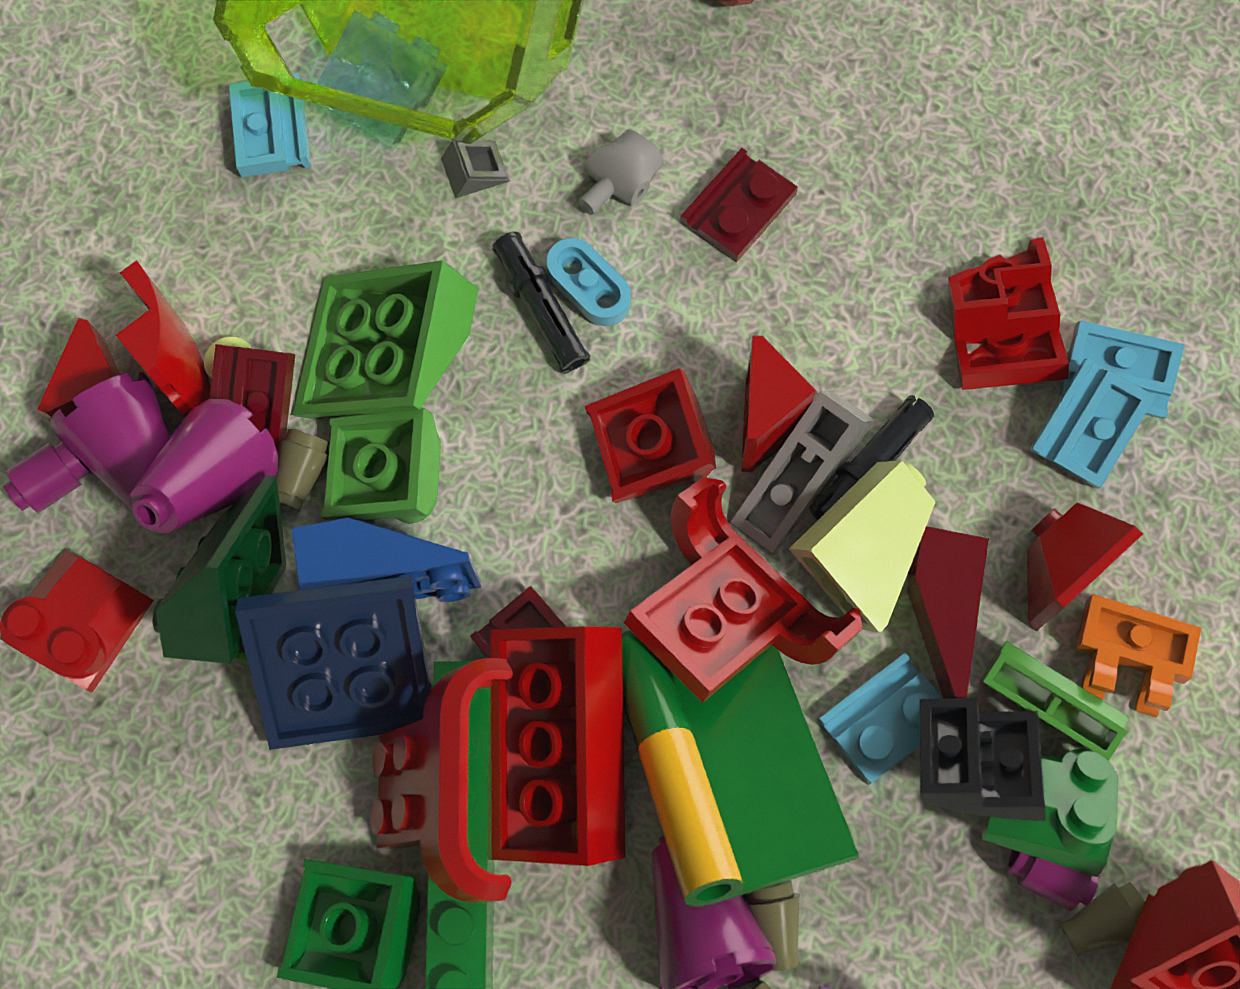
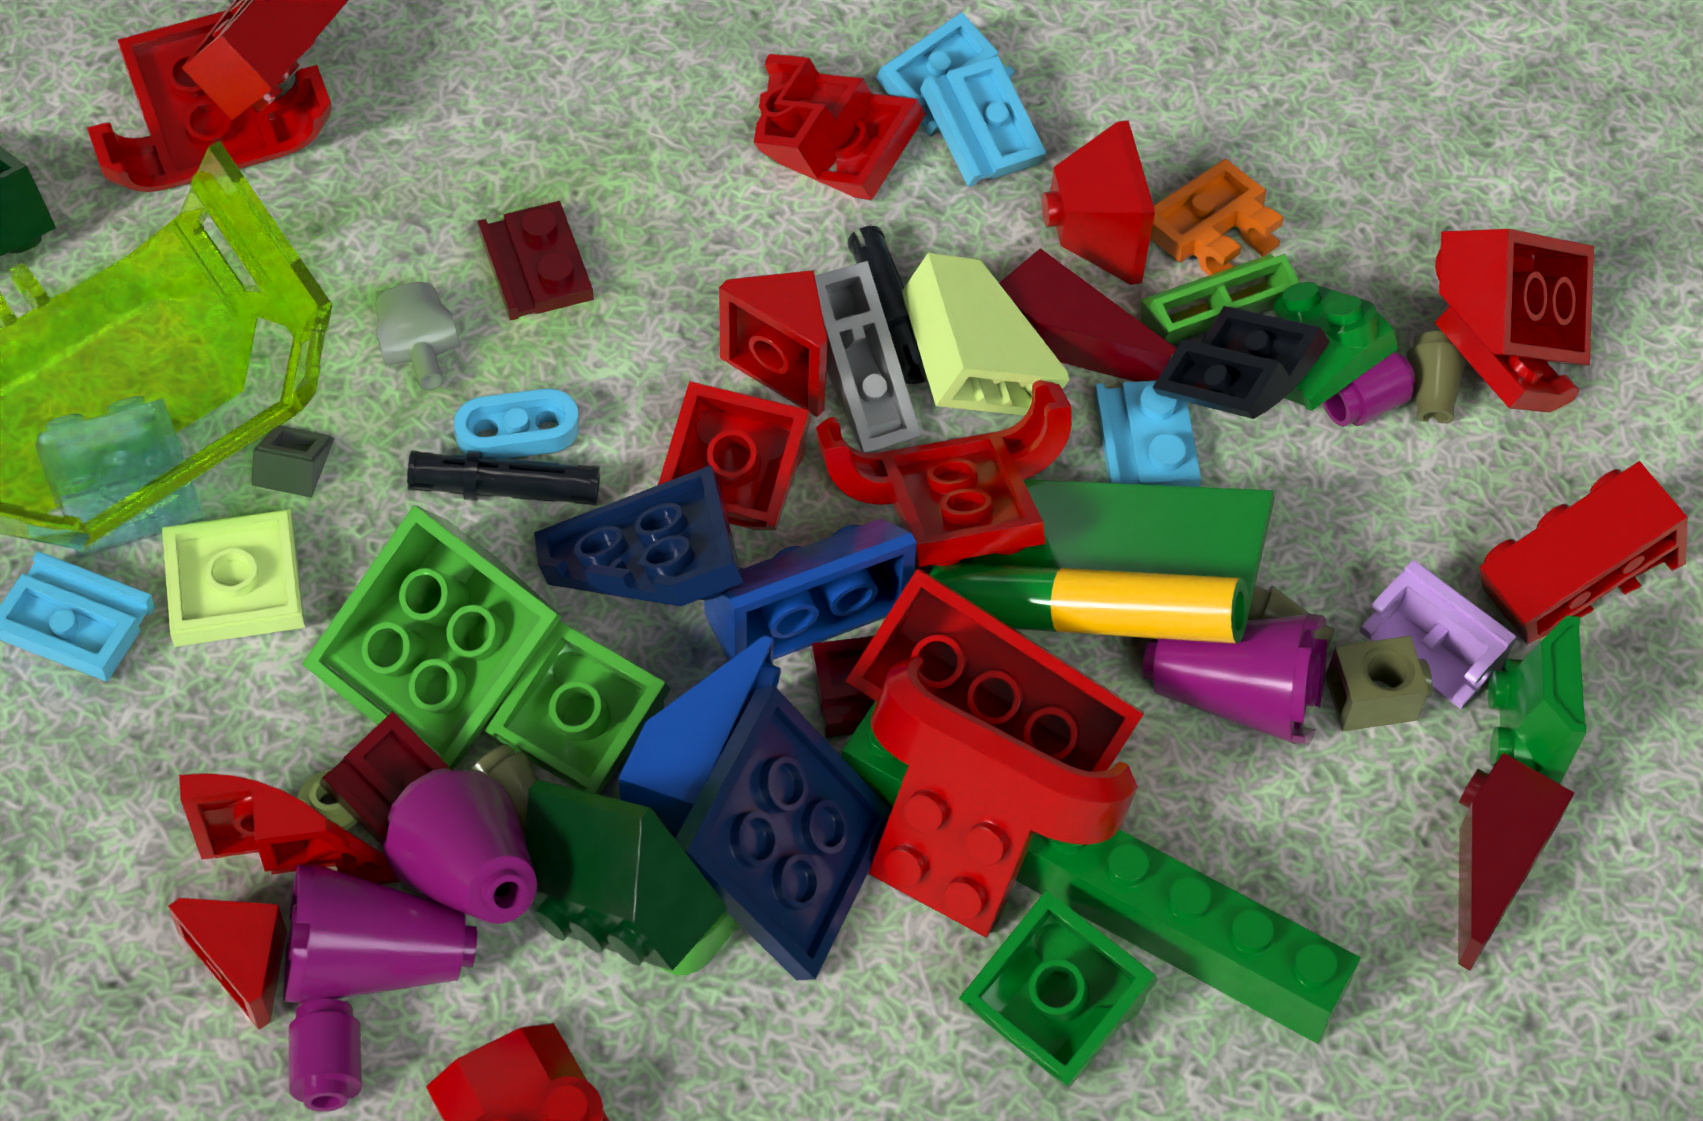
camera: 65 degrees left, 15 degrees down
(356, 194) = (232, 578): none -> yellowish green plate
(526, 430) = (650, 546): none -> dark blue plate
(567, 554) = (816, 590): none -> blue slope

